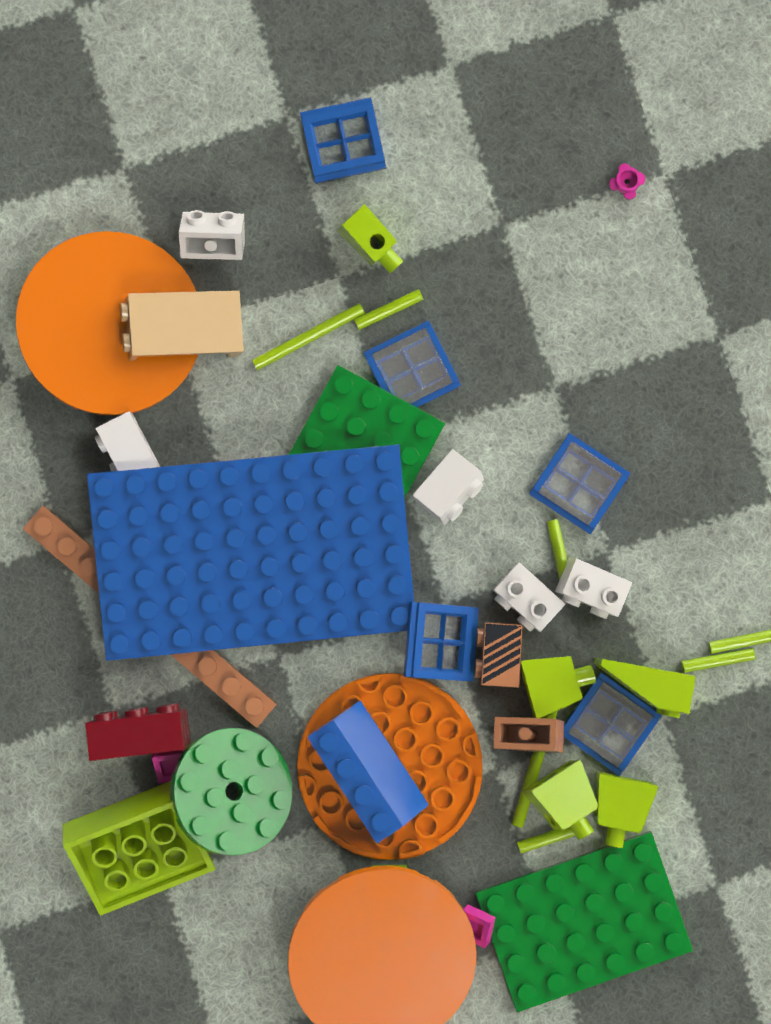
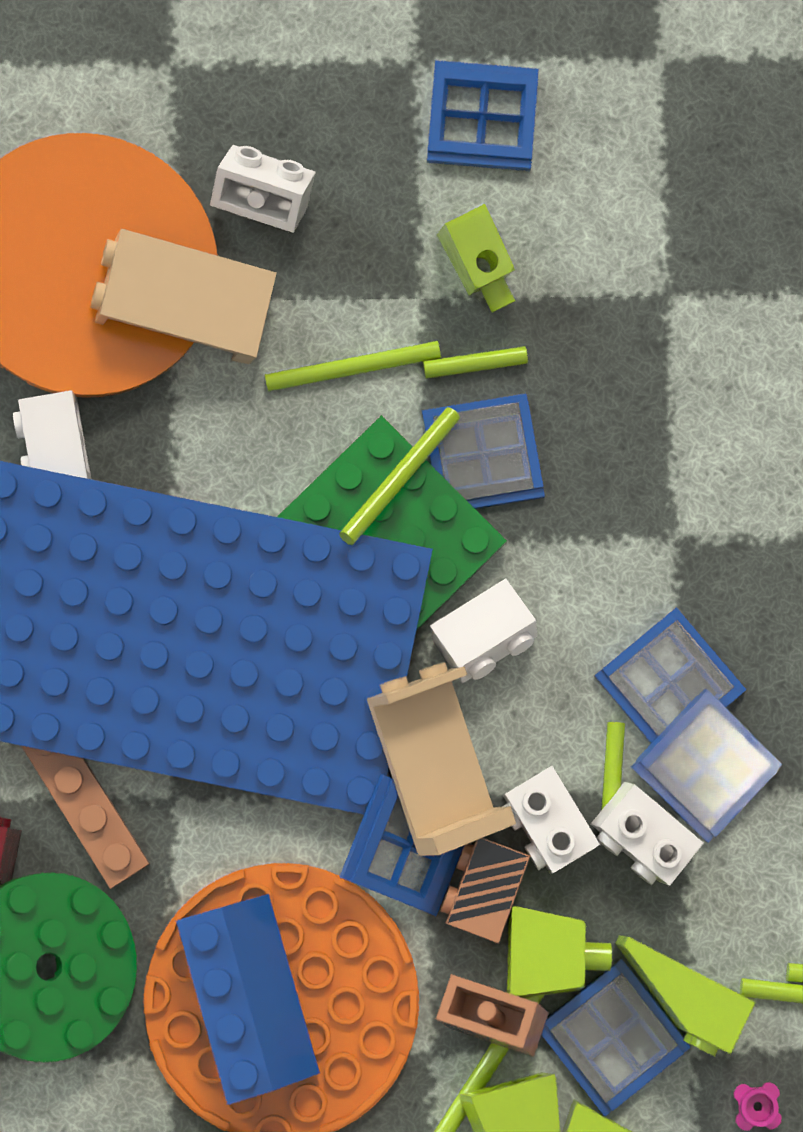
camera: 15 degrees right, 5 degrees down
(362, 402) = (399, 476): none -> lime bar
(443, 583) = (435, 762): none -> tan panel
(619, 531) = (706, 765): none -> clear piece
(723, 743) = (767, 1115): none -> dark pink plate

